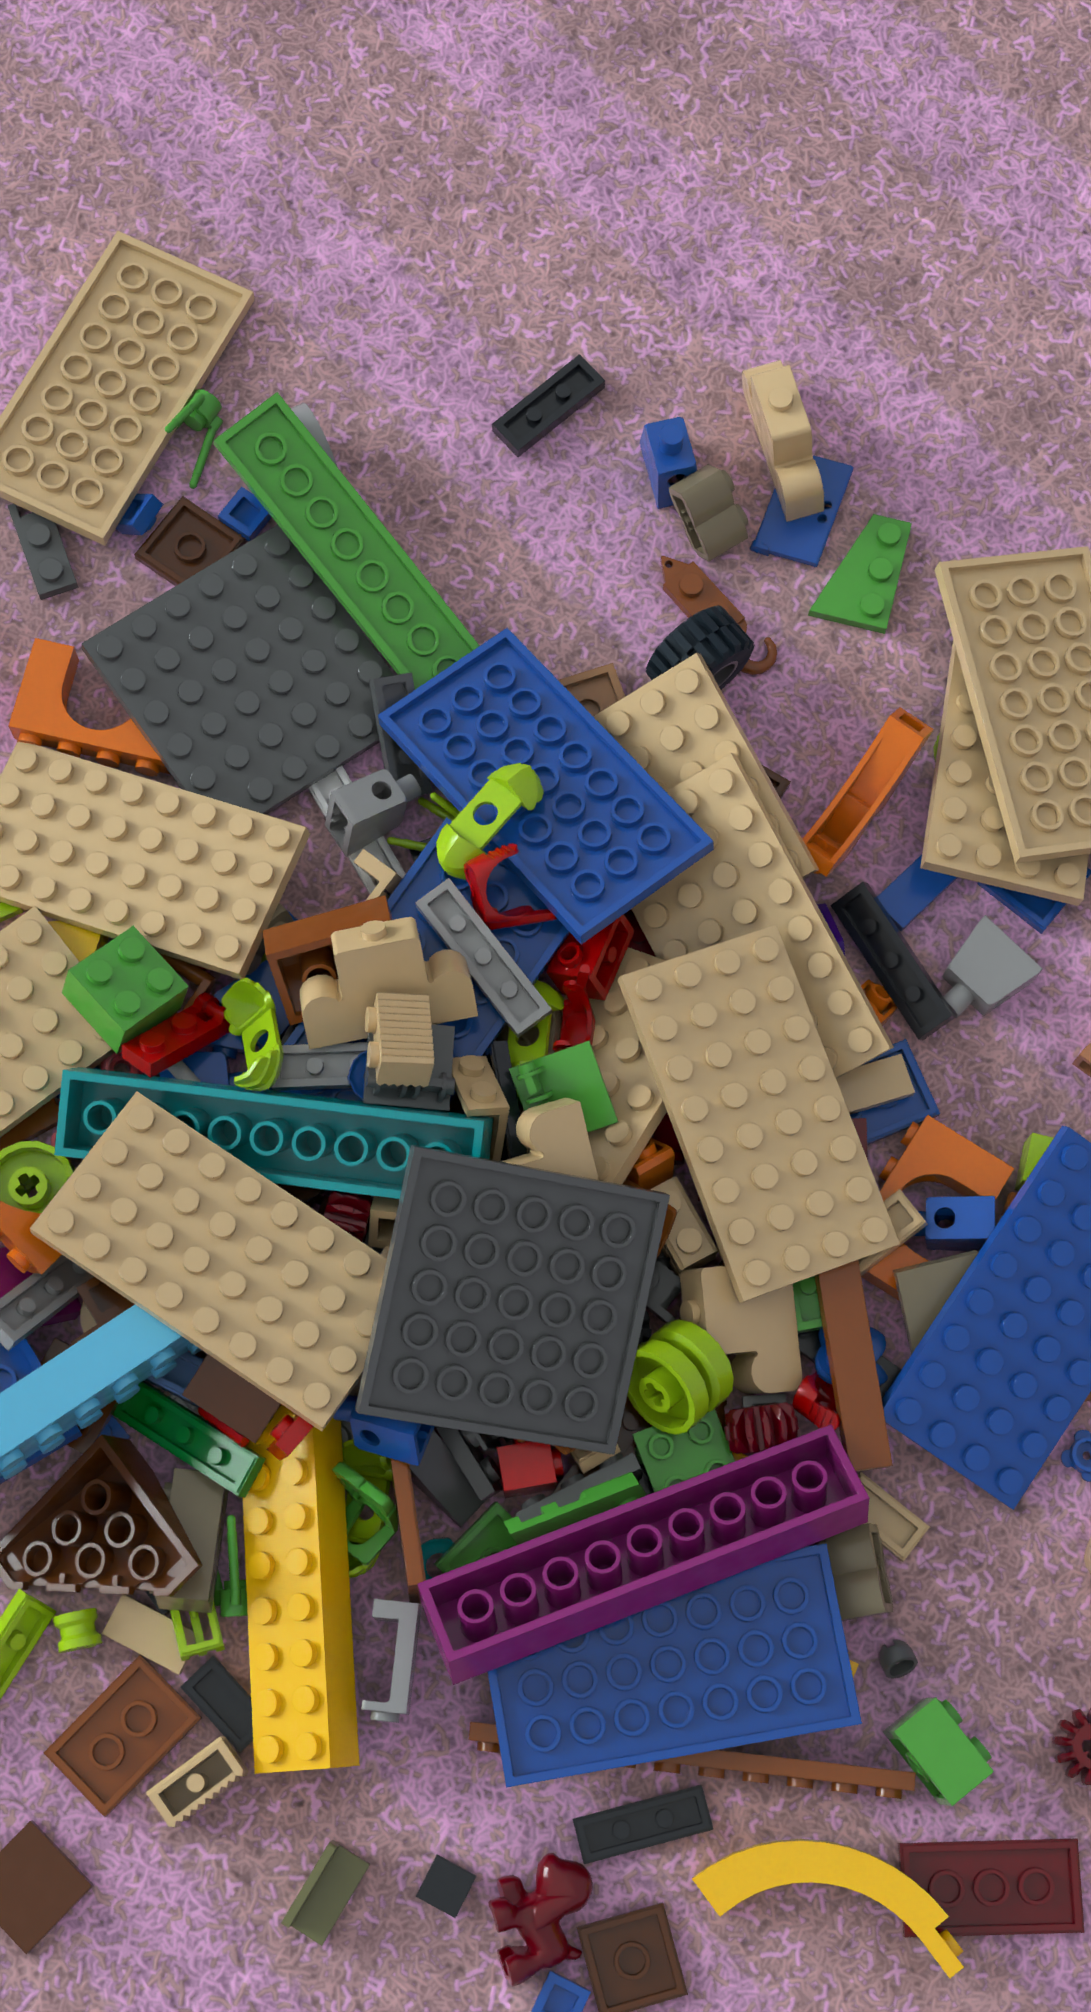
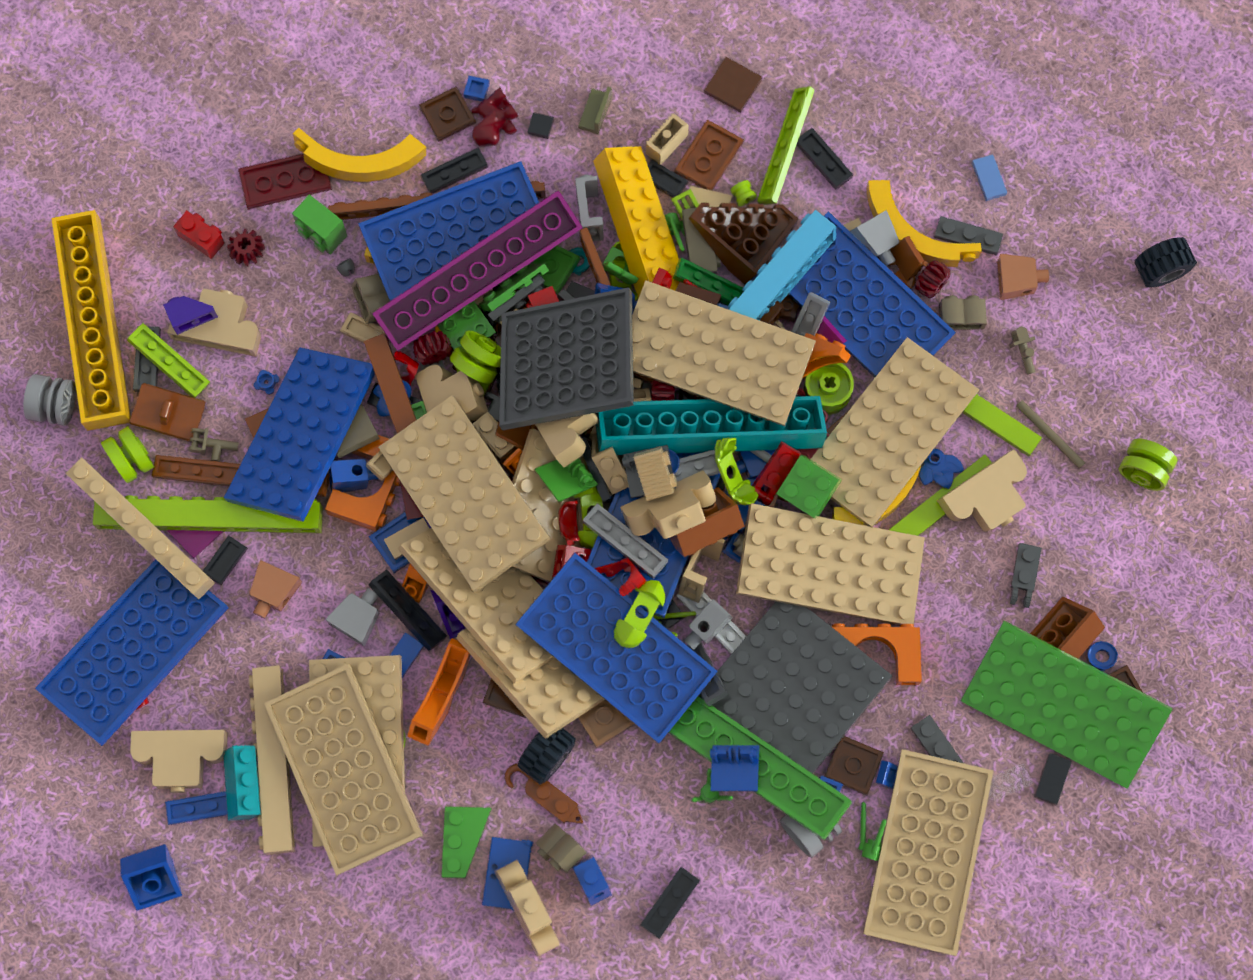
camera: 170 degrees right, 0 degrees up
(391, 548) = (734, 767): none -> blue hinge
(441, 550) = (710, 796): none -> bright green plant

